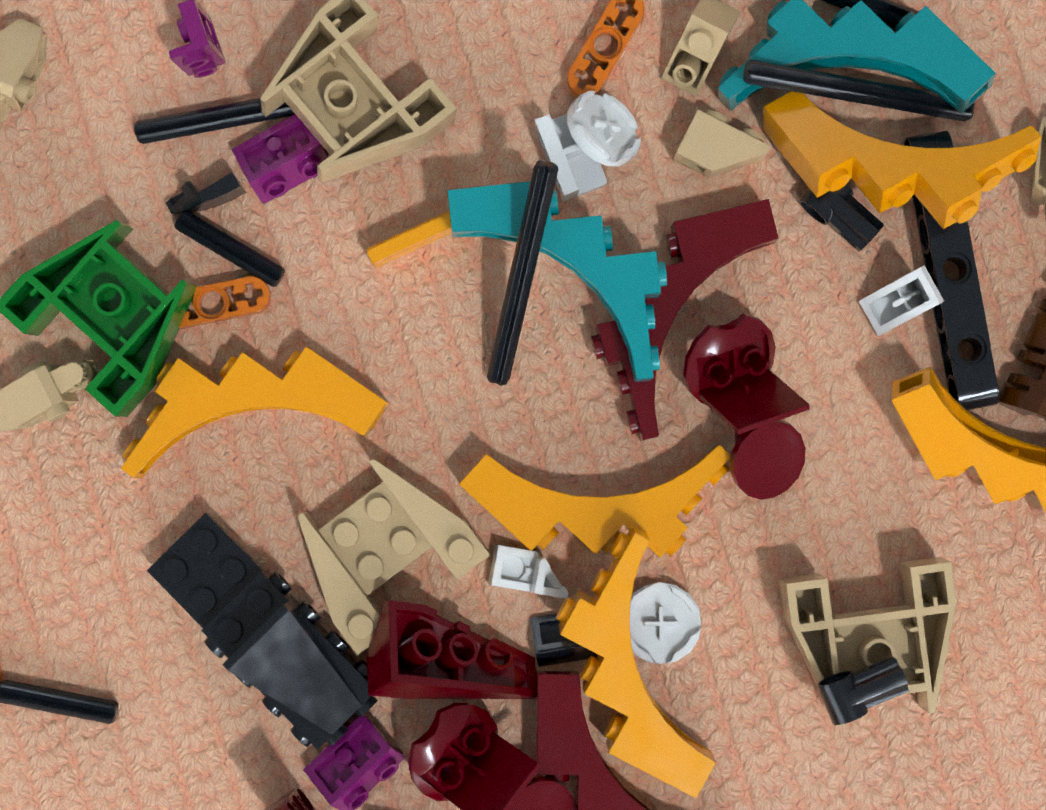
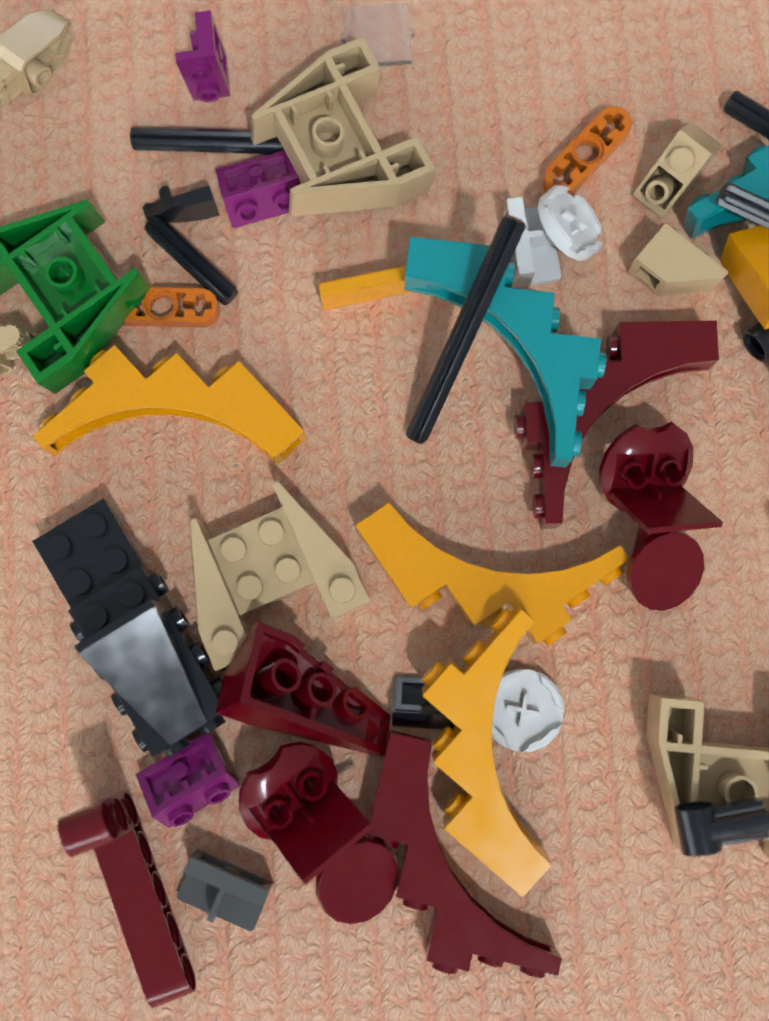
camera: 15 degrees right, 5 degrees down
(524, 571) = (399, 628): white slope -> none

